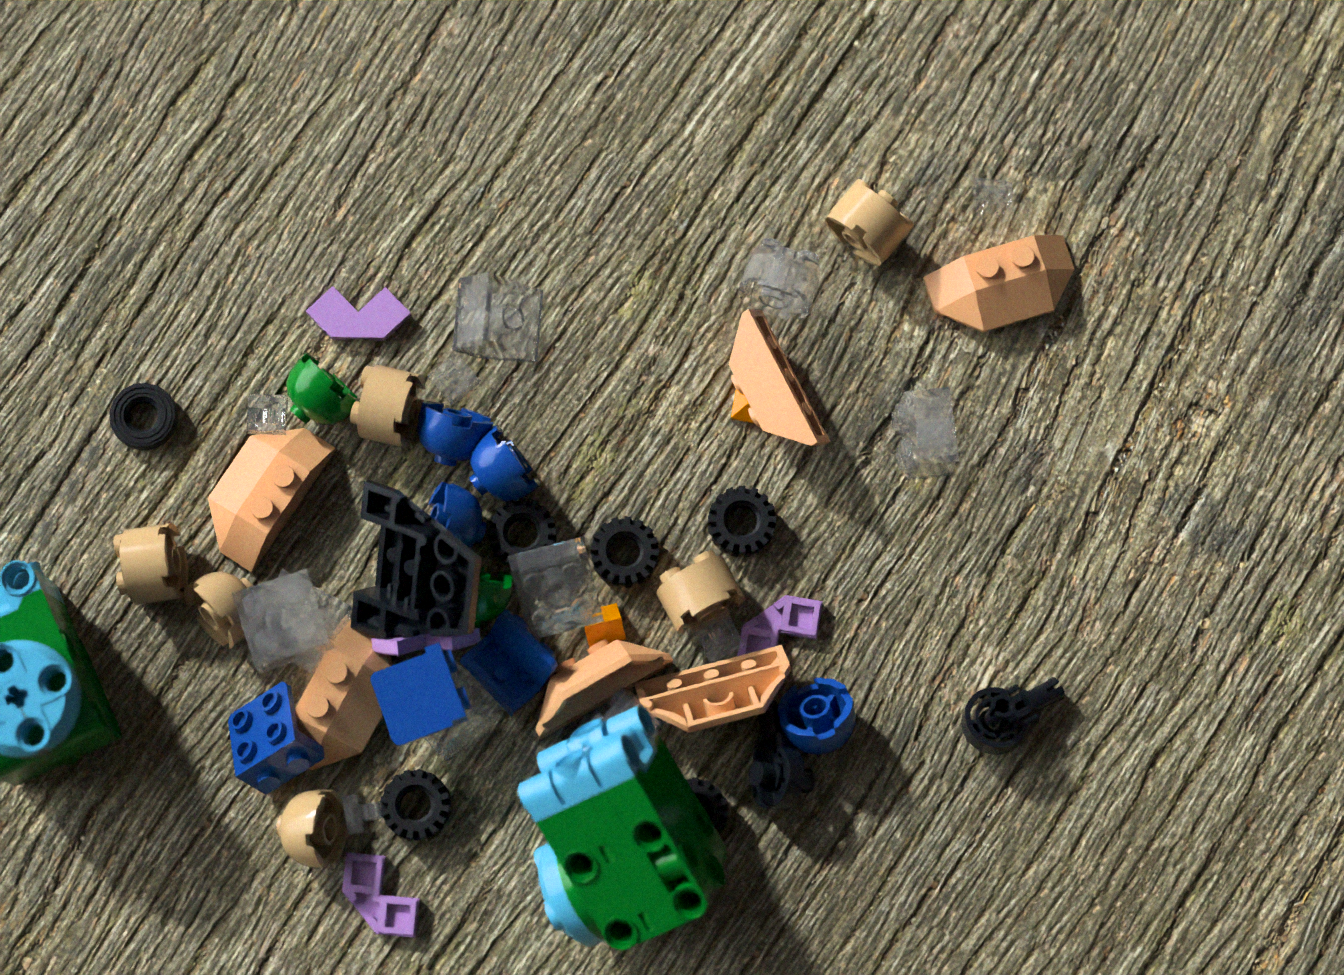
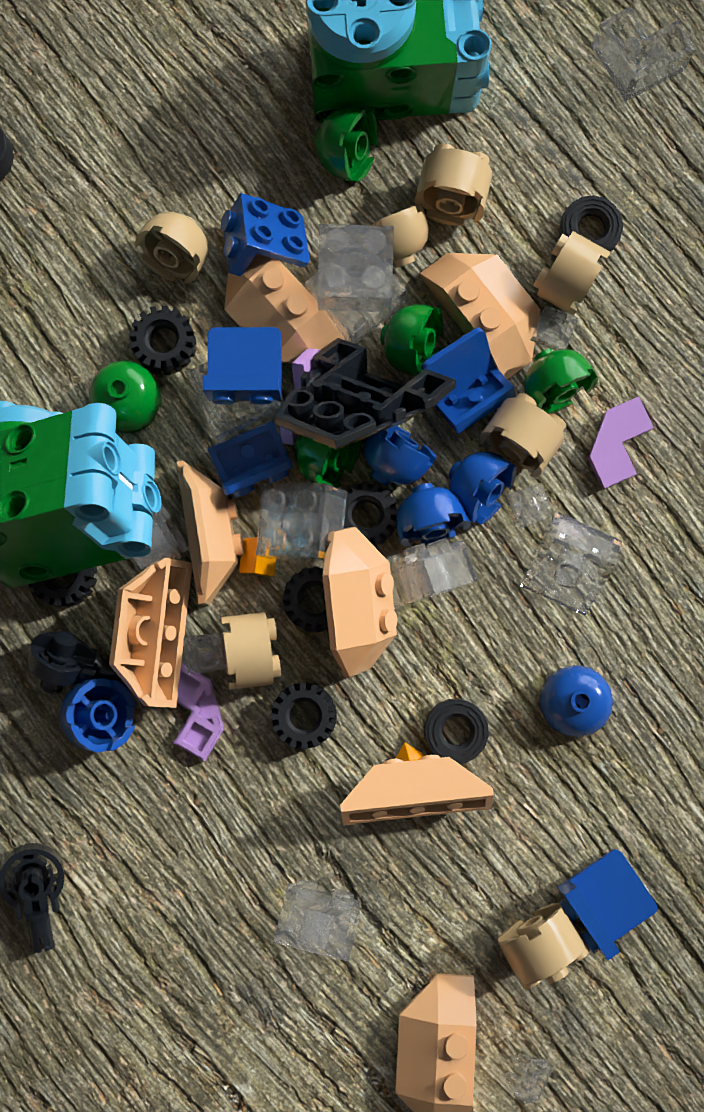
camera: 115 degrees right, 5 degrees up
(140, 694) = (346, 141): none -> green cylinder
(205, 415) = (571, 272): none -> tan brick
(328, 550) = (411, 337): none -> green cylinder
(343, 474) = (478, 382): none -> blue bracket
(359, 814) = (173, 288): clear tile -> none
(364, 889) = (84, 285): lavender tile -> none
(488, 822) = (130, 392): none -> green cylinder
(564, 453) = (430, 571): none -> clear brick
(609, 502) = (357, 601): none -> light nougat wedge
(617, 277) = (564, 690): none -> blue cylinder
(685, 388) = (472, 715): none -> black tyre
(780, 279) = (516, 838): clear brick -> none
(806, 179) = (606, 901): none -> blue bracket

